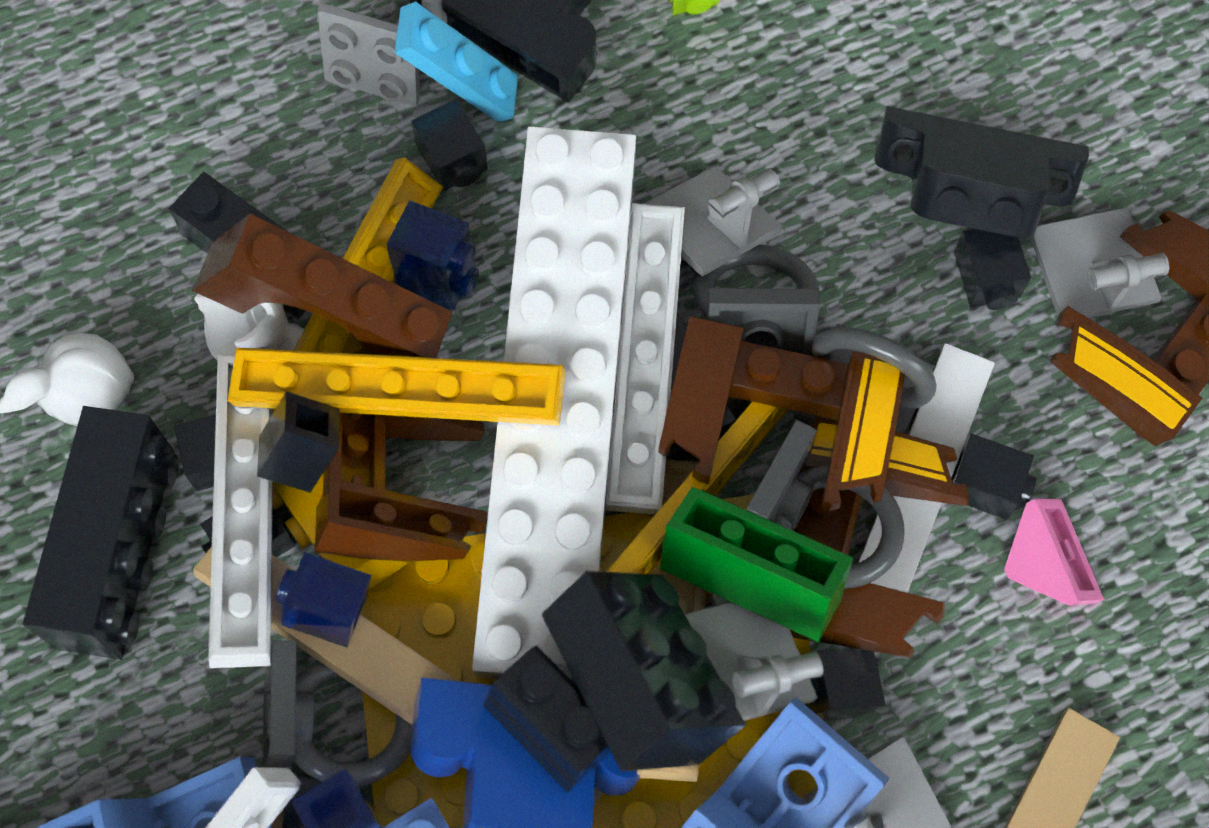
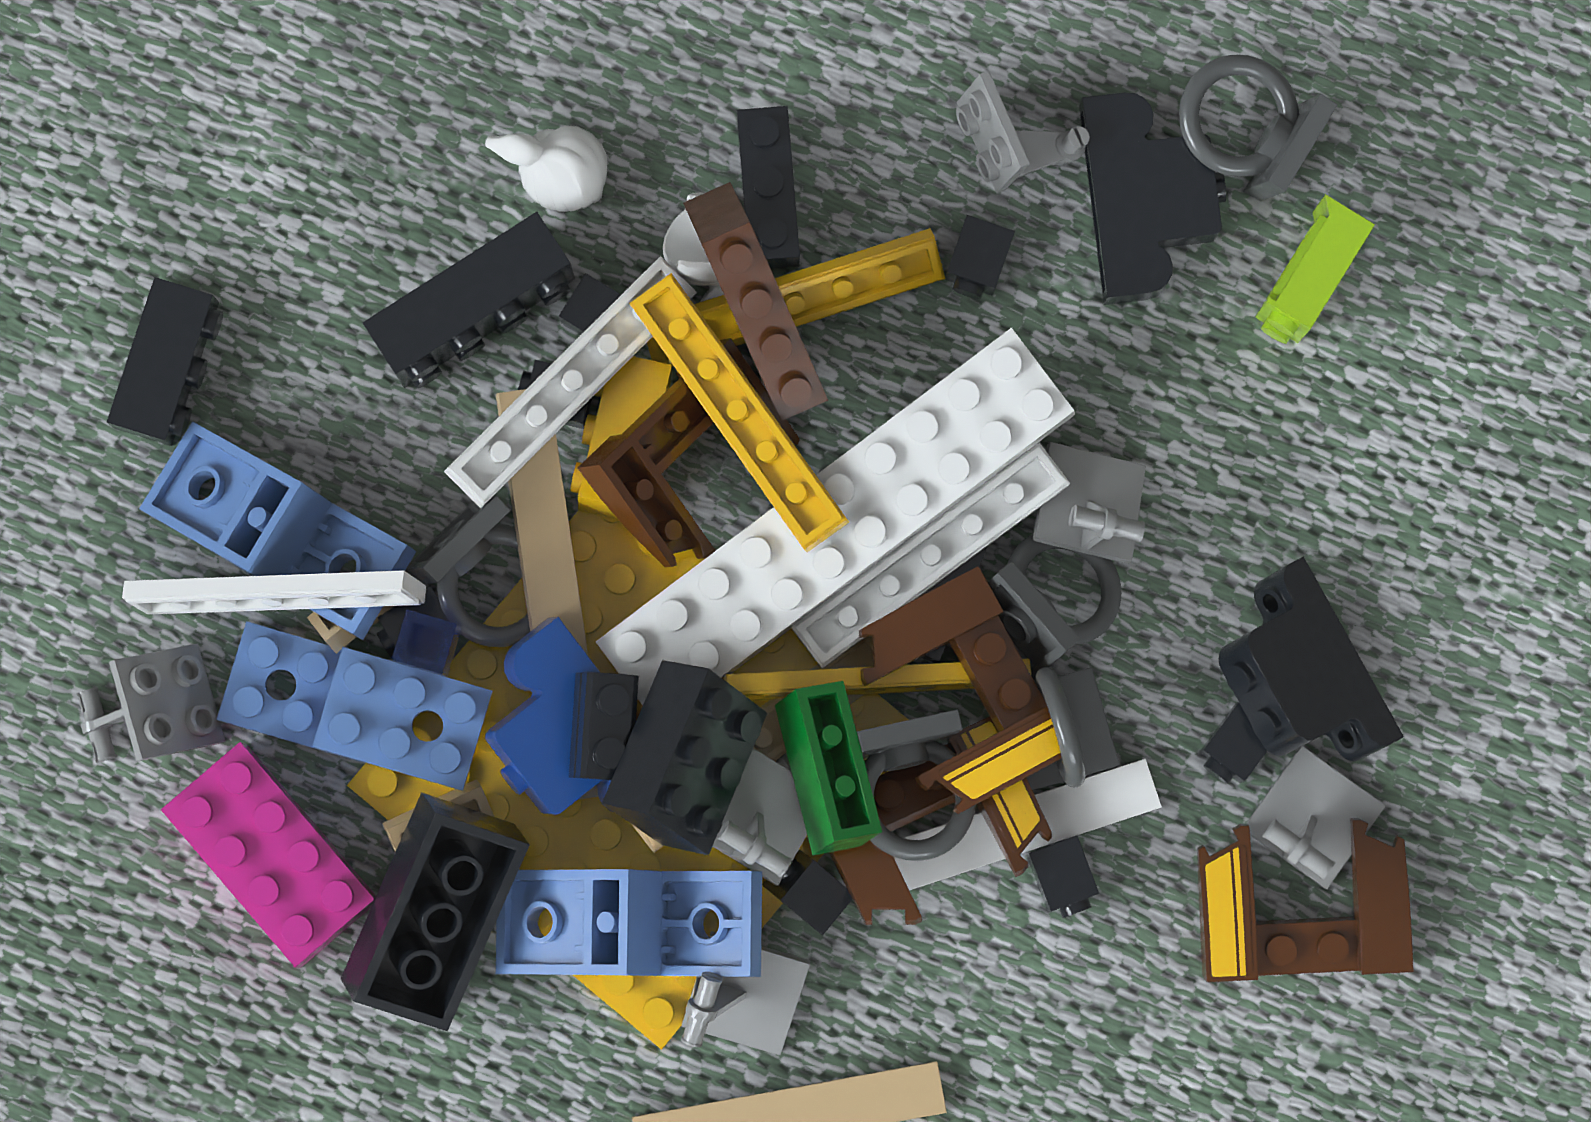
camera: 45 degrees right, 15 degrees up
(298, 442) = (641, 384): black brick -> none
(323, 598) = (553, 500): clear blue brick -> none
(433, 255) = (872, 334): clear blue brick -> none
(456, 62) = (1040, 208): medium azure plate -> none
(1050, 556) = (1043, 965): bright pink slope -> none

